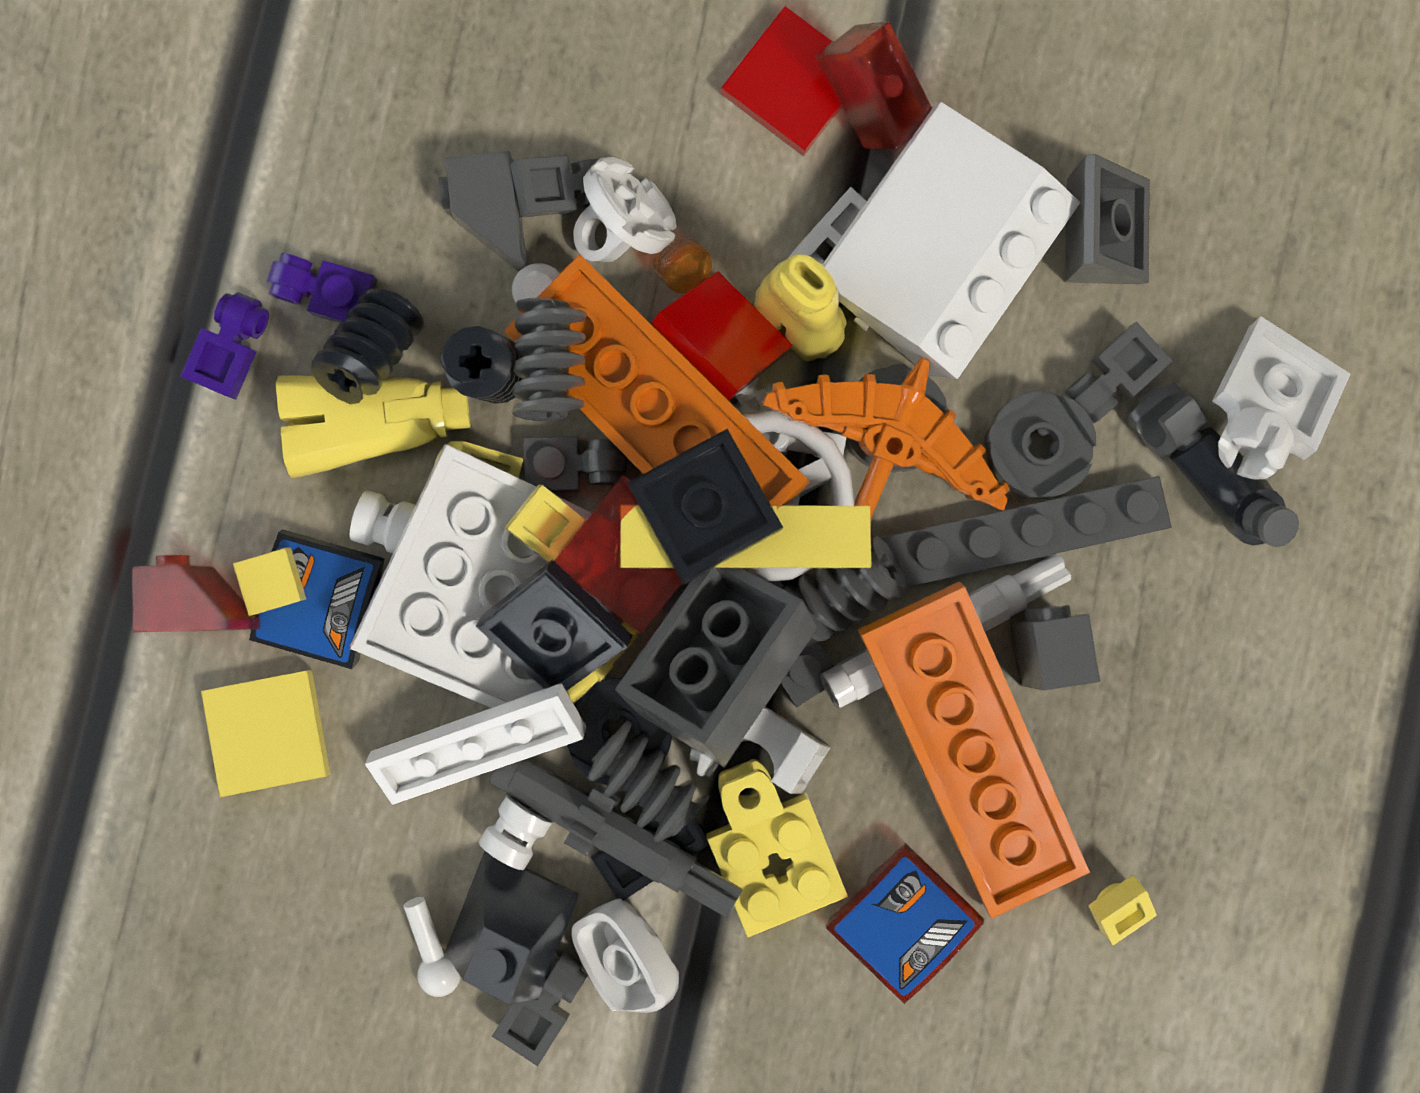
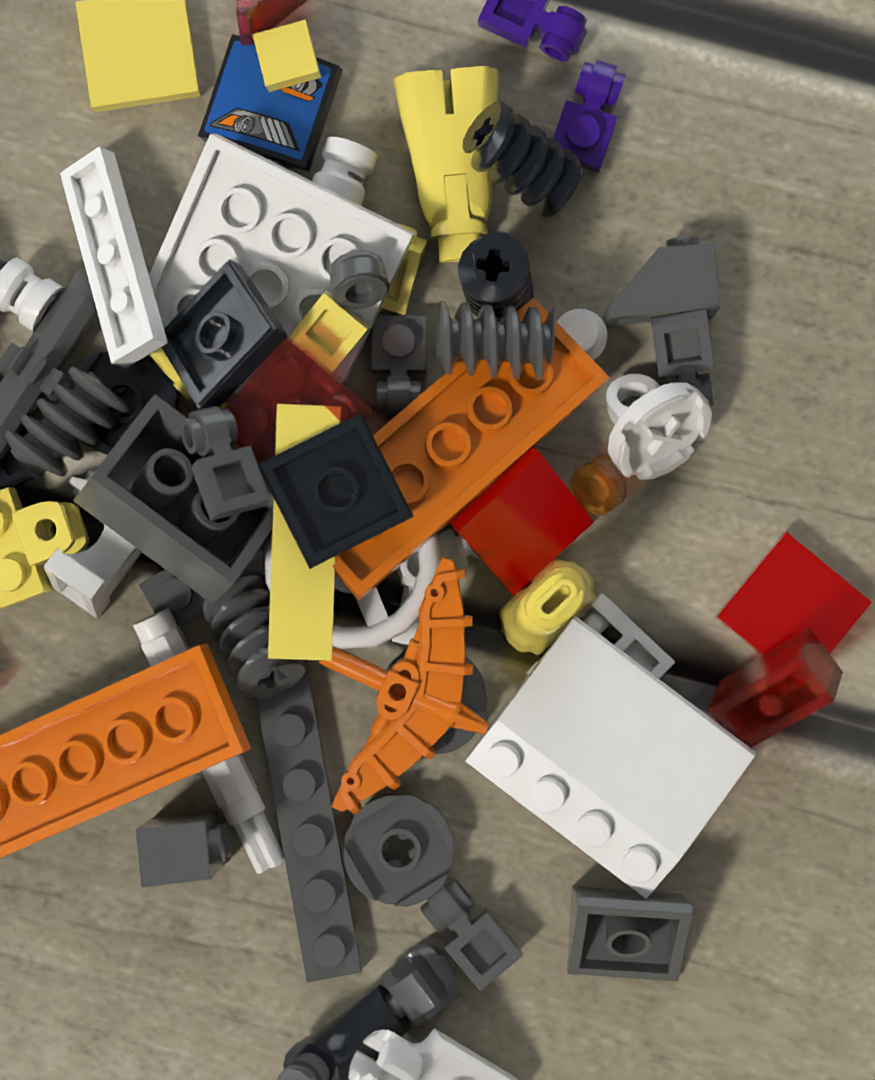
camera: 90 degrees right, 0 degrees up
(492, 495) = (358, 279): none -> dark grey tile
(697, 611) = (226, 477): none -> dark grey plate

